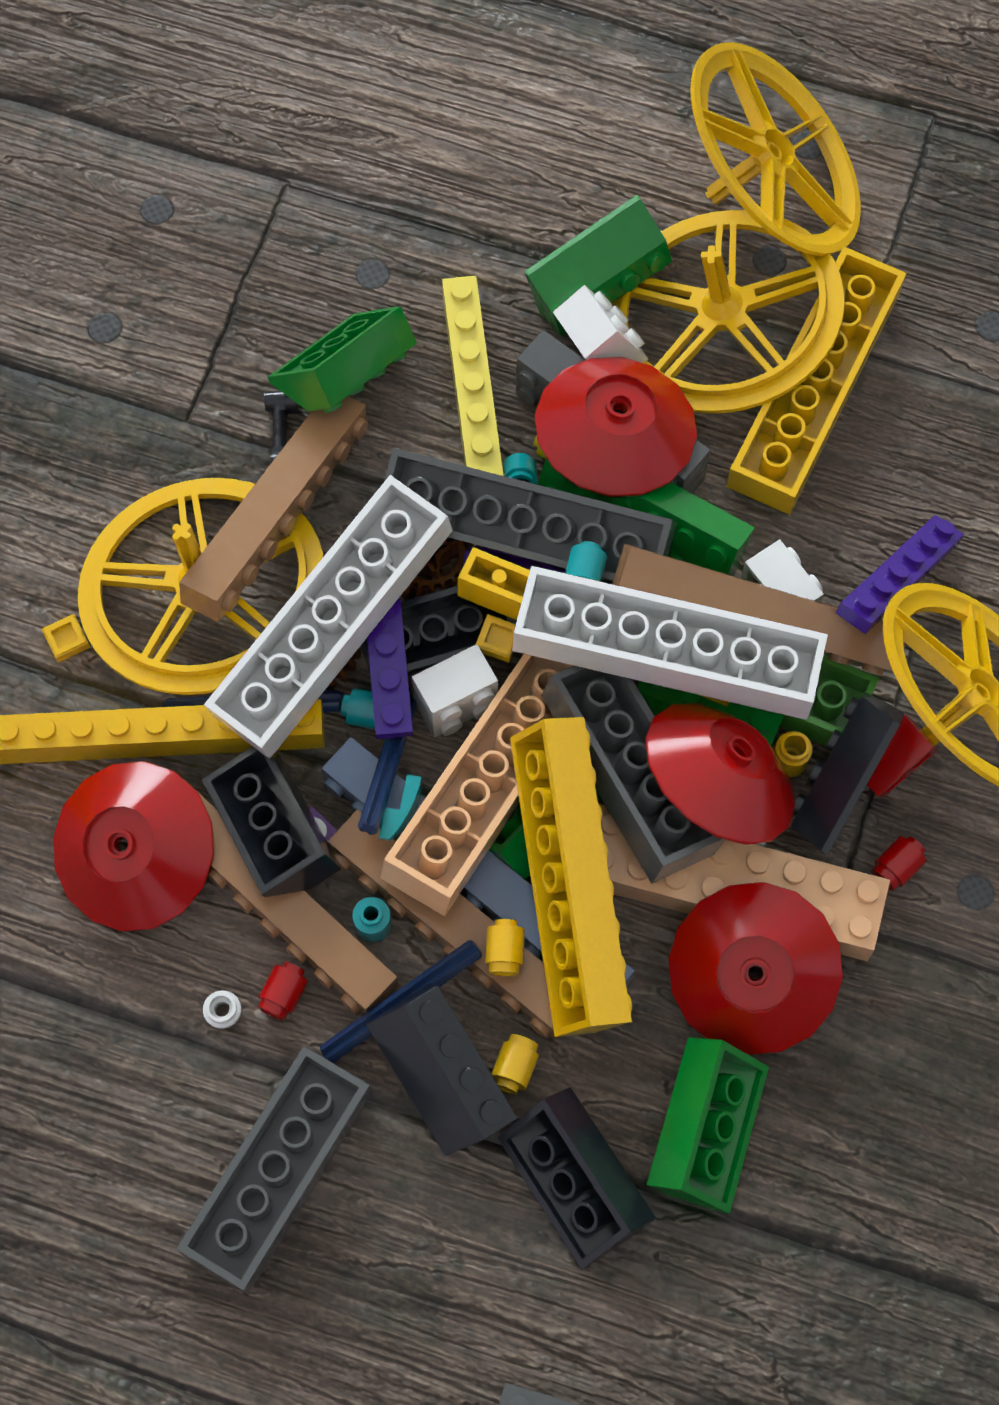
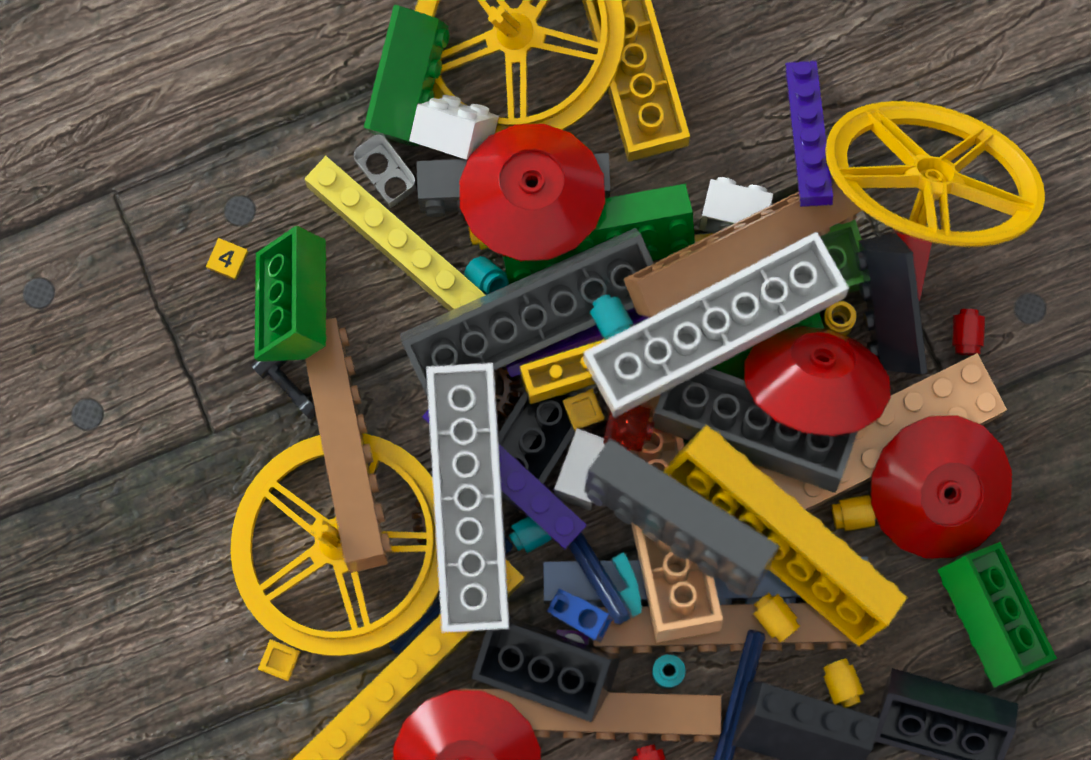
camera: 40 degrees left, 10 degrees up
(326, 299) = (227, 259): none -> yellow tile
(338, 803) = (580, 614): none -> blue leg
(489, 780) = (679, 519): none -> dark grey brick
(512, 304) = (379, 144): none -> white piece
(519, 676) = (630, 428): none -> clear red brick
(655, 927) = (853, 513): none -> yellow brick

